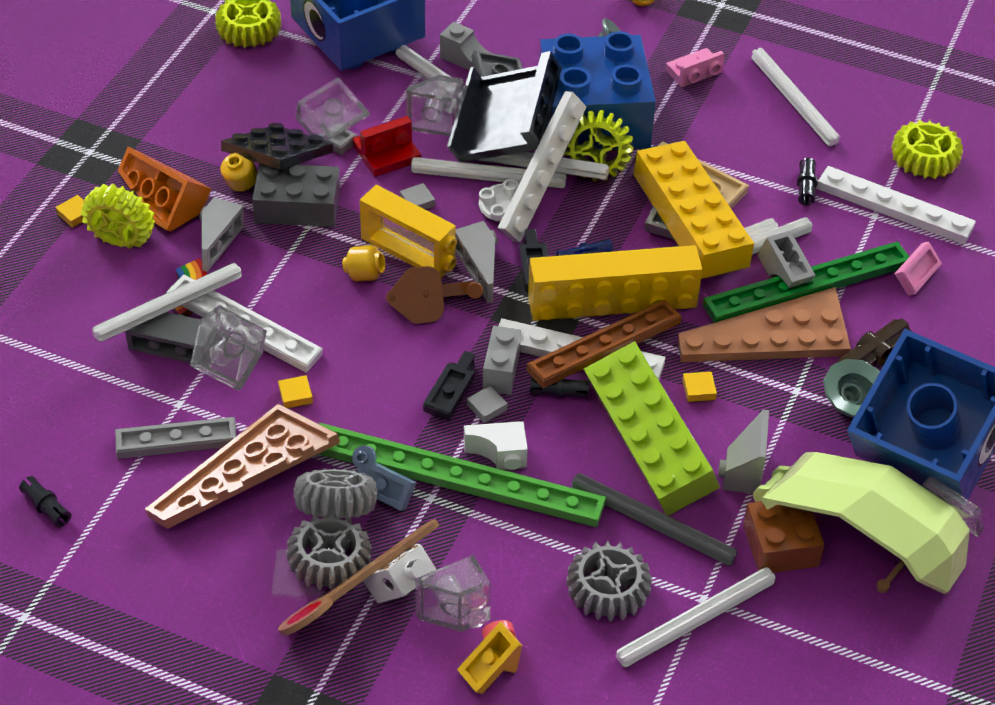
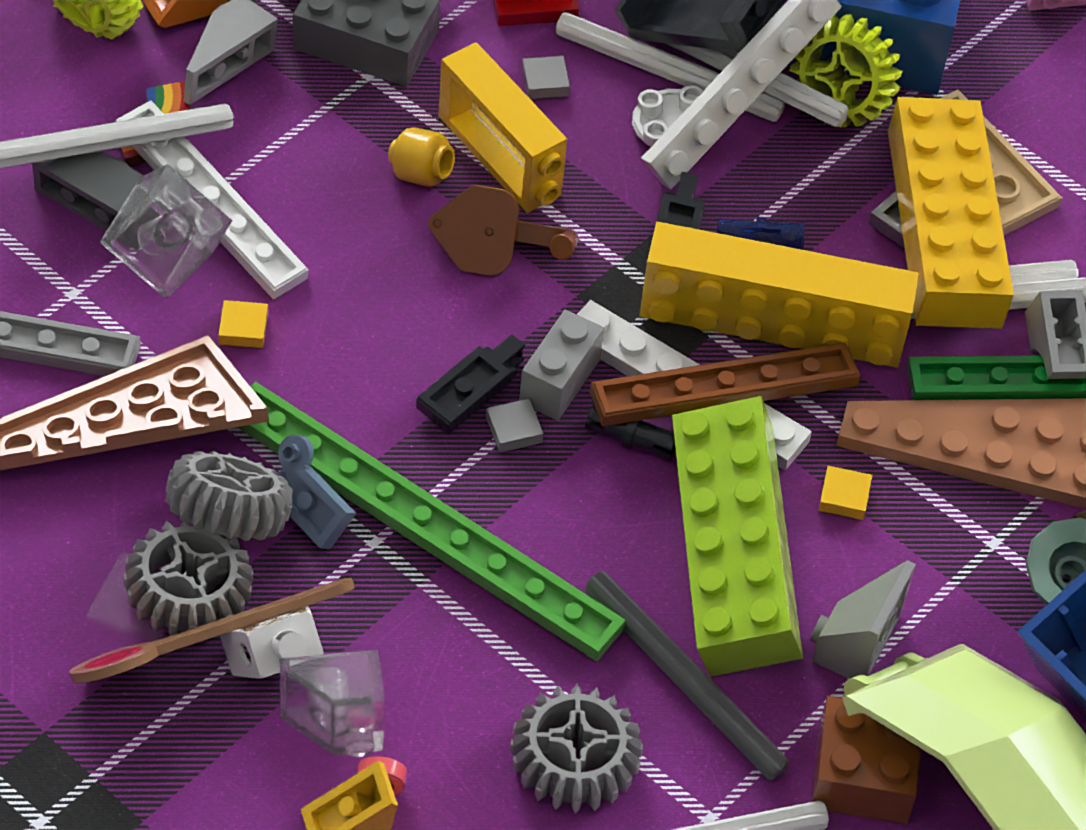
camera: 15 degrees right, 5 degrees up
(477, 252) = (598, 190): light grey slope -> none
(499, 442) = (505, 489): white arch -> none

